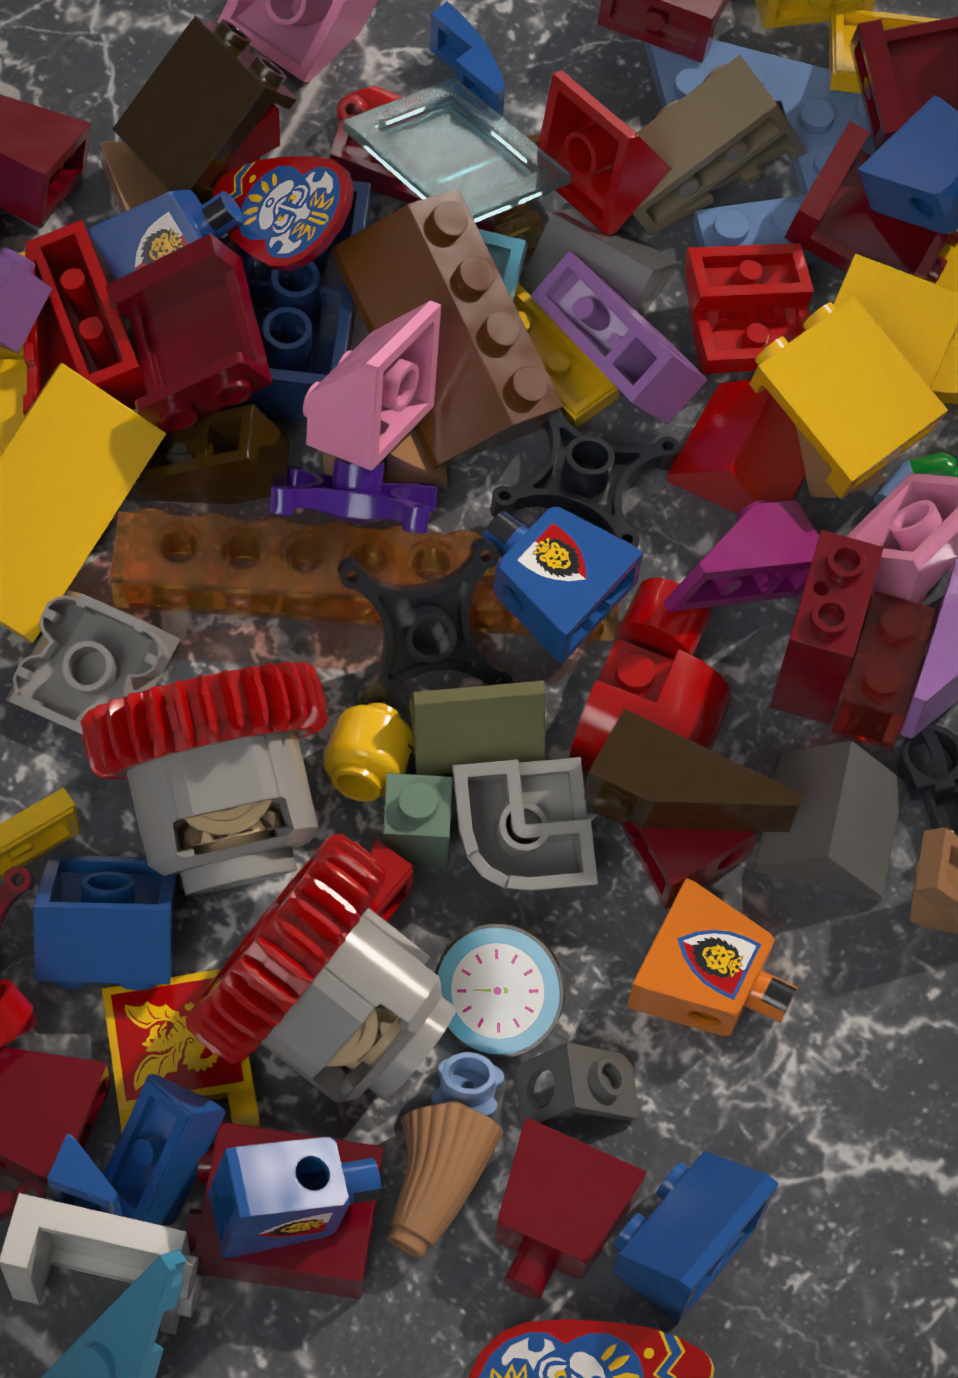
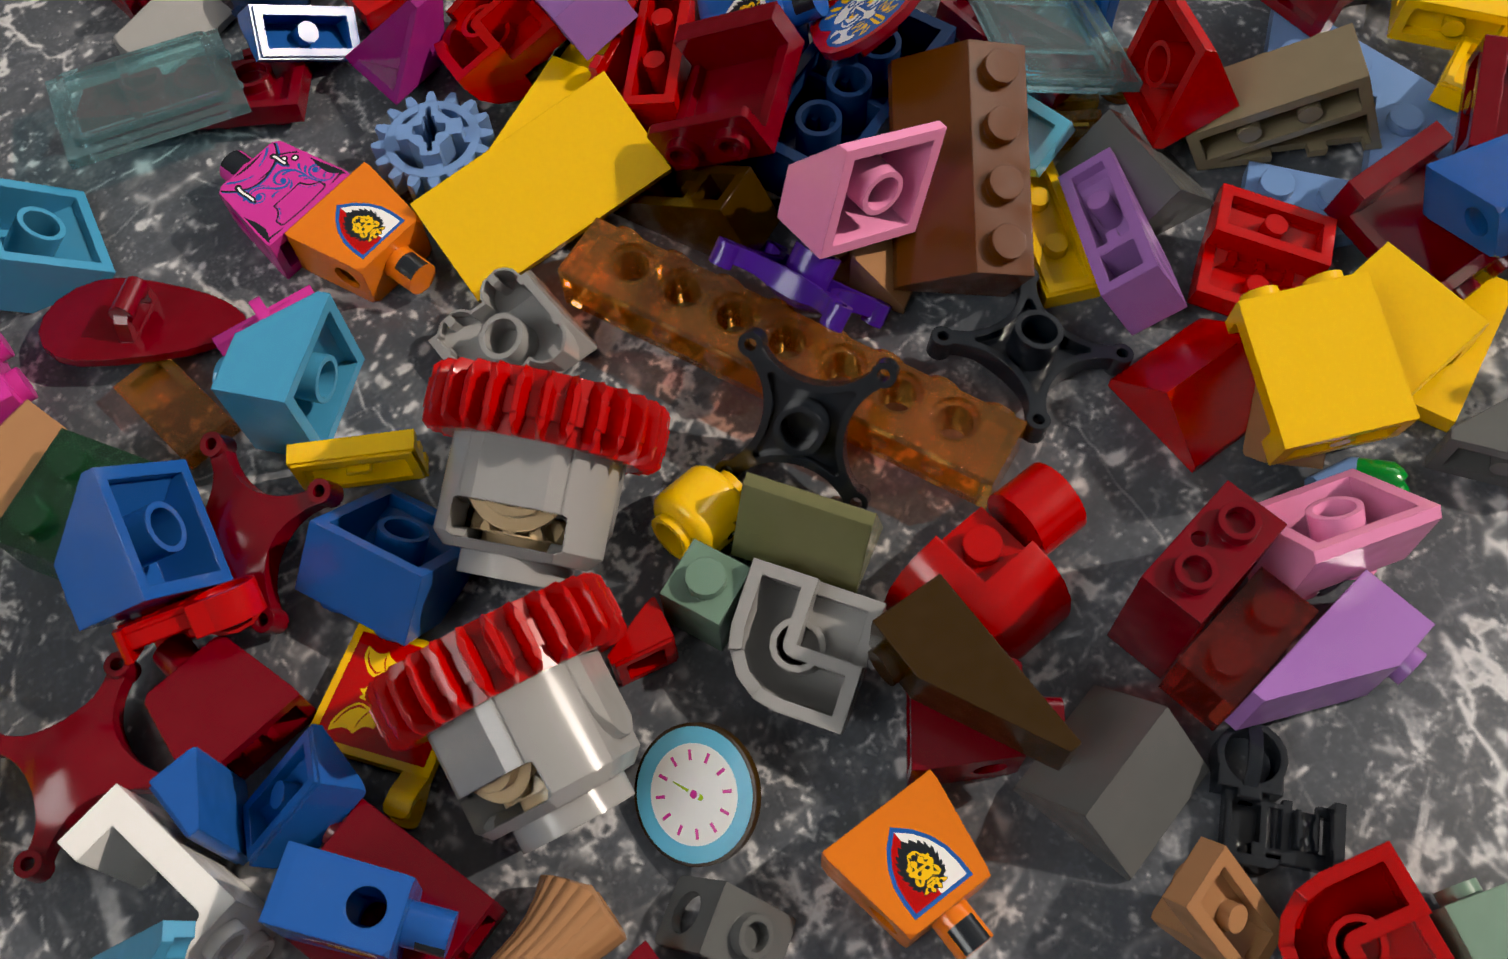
camera: 35 degrees right, 0 degrees up
(469, 1080) = (627, 857): medium blue plate -> none
(561, 575) = (951, 424): blue torso -> none
(755, 561) = (1143, 486): magenta slope -> none

